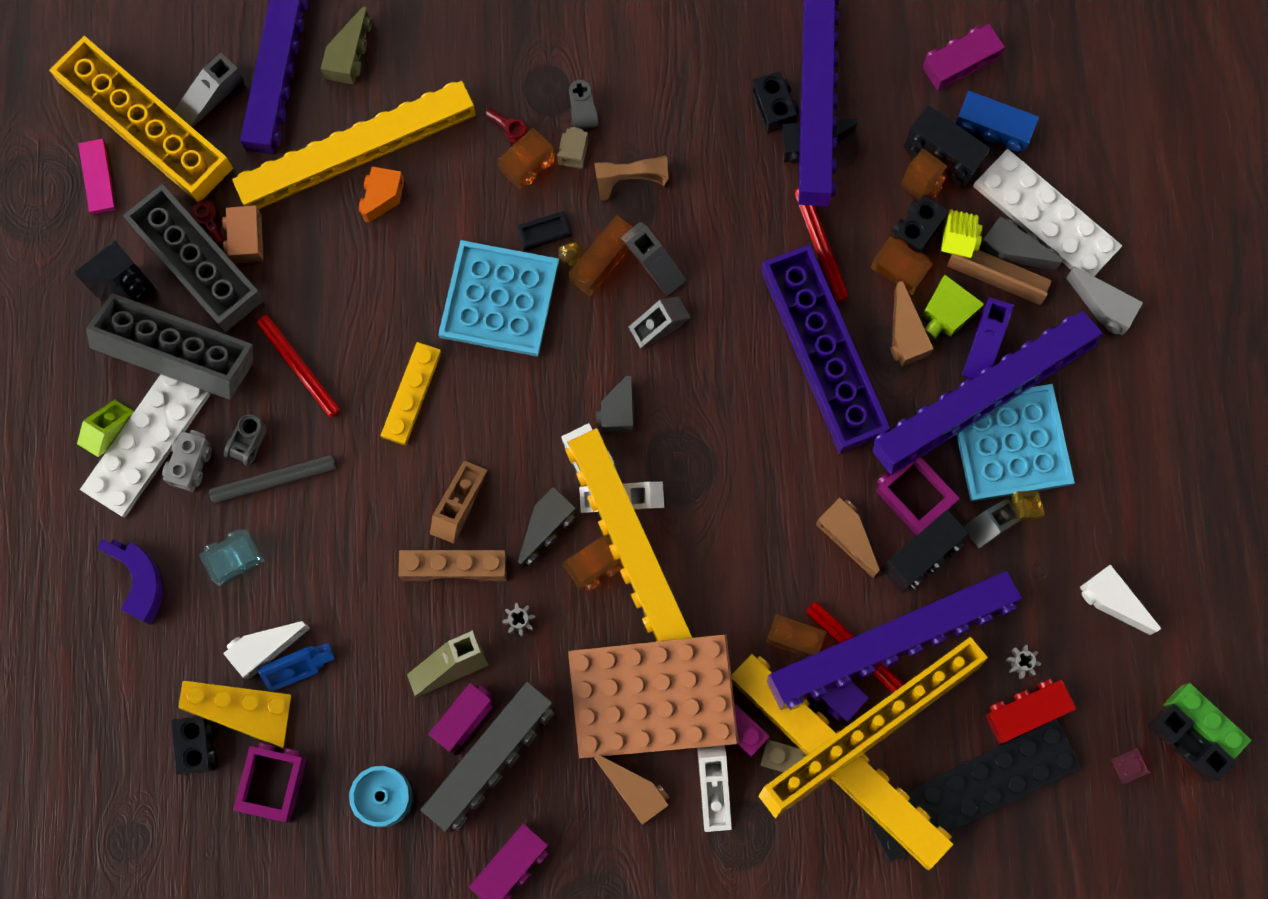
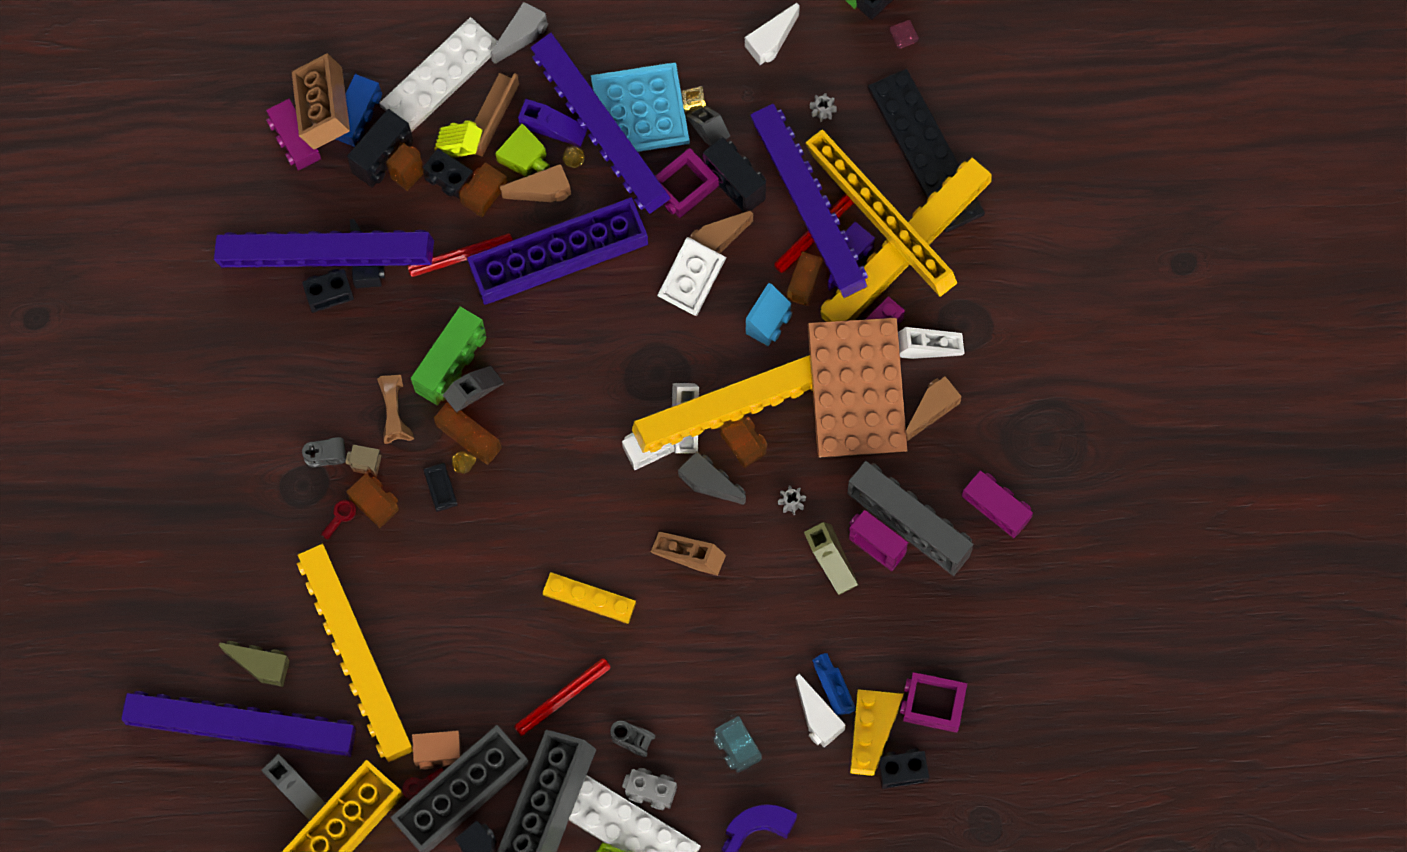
camera: 90 degrees left, 5 degrees down
(272, 479) = (666, 715): dark grey axle -> none
(382, 192) = (399, 626): orange slope -> none
(397, 796) = (940, 619): medium azure wheel -> none
(466, 564) = (745, 554): medium nougat arch -> none
(499, 298) = (503, 522): medium azure plate -> none
(617, 409) = (606, 420): dark grey slope -> none
(659, 321) = (529, 387): dark grey slope -> none
(692, 230) = (449, 356): none -> bright green brick
(745, 592) = (768, 316): none -> dark azure slope
(780, 756) = (905, 288): dark tan plate -> none
(796, 502) = (691, 276): none -> white tile
(947, 366) = (573, 156): none -> clear yellow plate
(999, 77) = (320, 101): none -> medium nougat brick
(1016, 247) = (469, 98): dark grey slope -> none
(1029, 710) = (862, 104): red brick -> none

